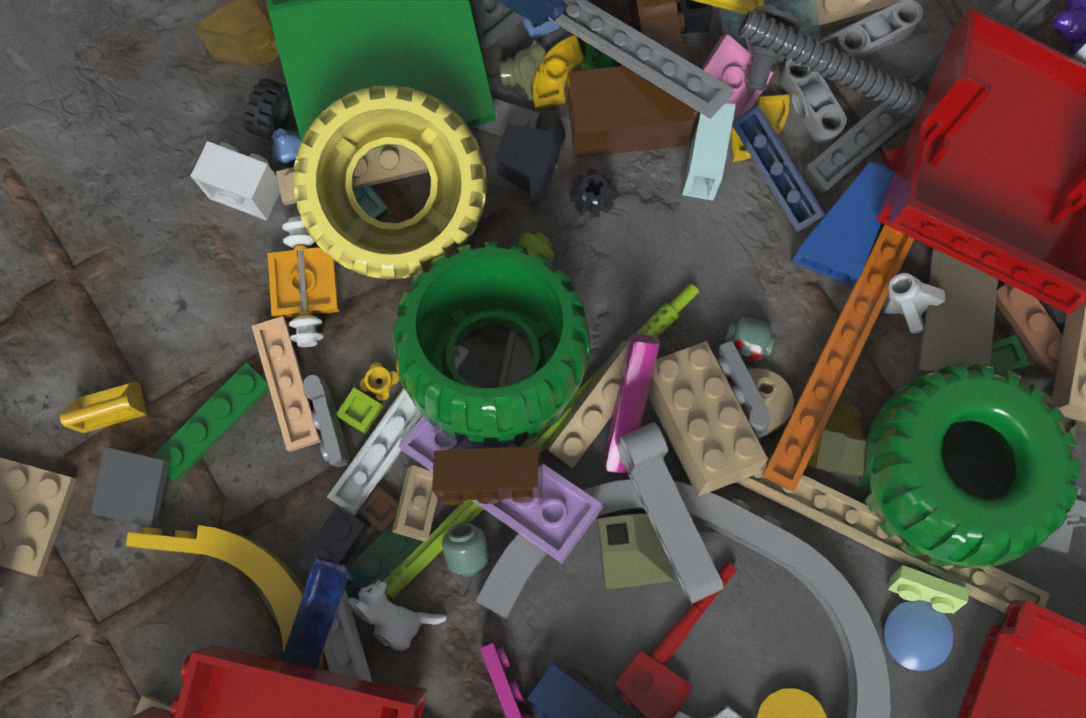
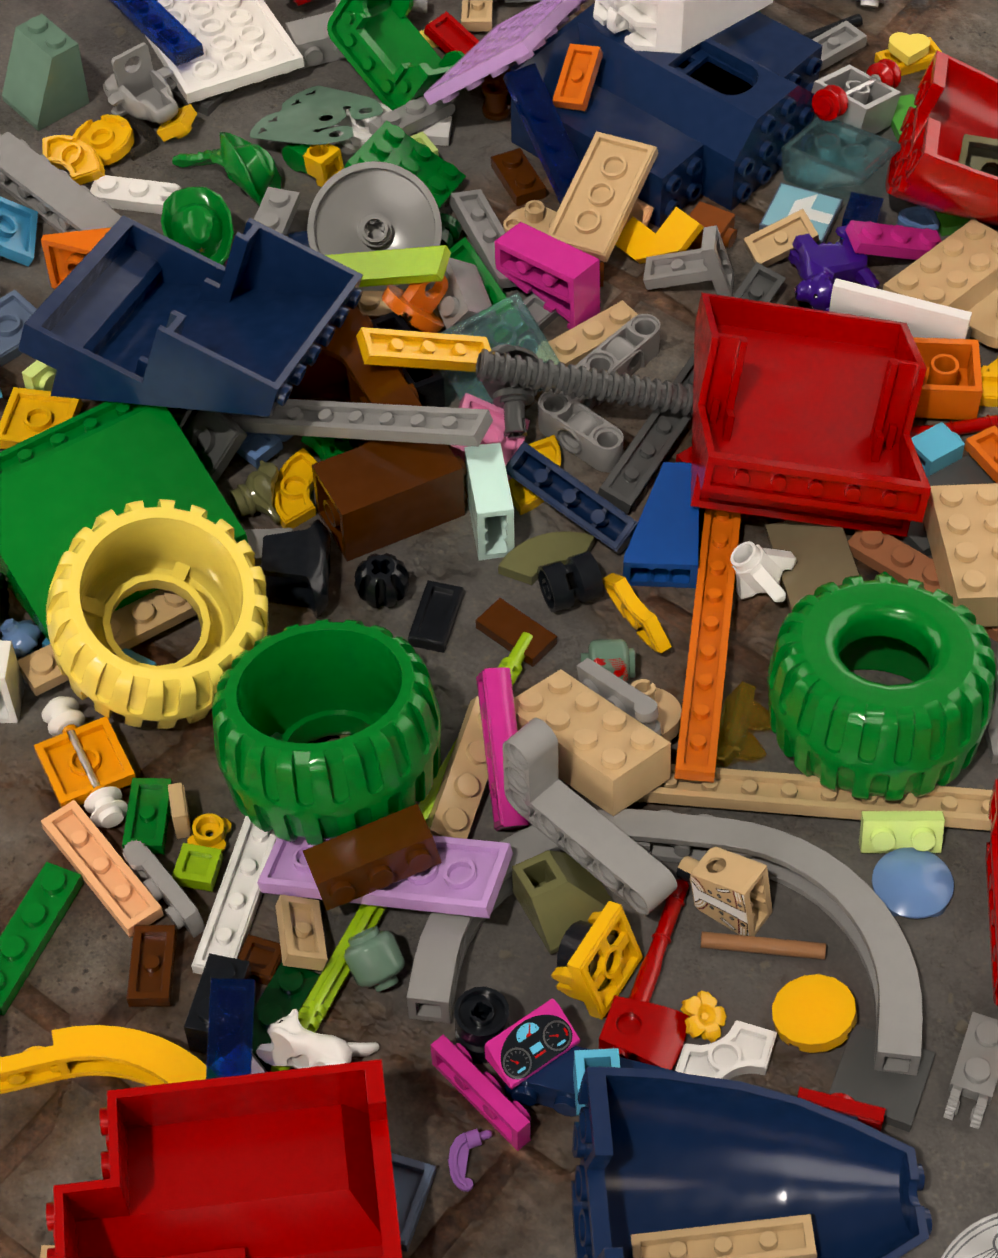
camera: 20 degrees left, 25 degrees down
(296, 486) = (152, 965): none -> reddish brown plate
(336, 348) = (148, 813): none -> green plate
(361, 354) = (179, 810): none -> tan tile
(527, 641) = (479, 1017): none -> black wheel
(556, 685) = (531, 1043): none -> slope
(627, 239) = (435, 616): none -> black tile
(636, 617) = (597, 959): none -> yellow piece
(681, 271) = (506, 624): none -> reddish brown tile
(703, 693) = (704, 1016): none -> yellow plant
(737, 210) = (525, 558): none -> olive tile
(759, 249) = (582, 576): none -> black wheel
(771, 605) = (729, 889): none -> tan torso
(775, 644) = (763, 945): none -> medium nougat bar
(790, 300) = (636, 612): none -> yellow tile
(842, 453) = (747, 719): olive piece -> none

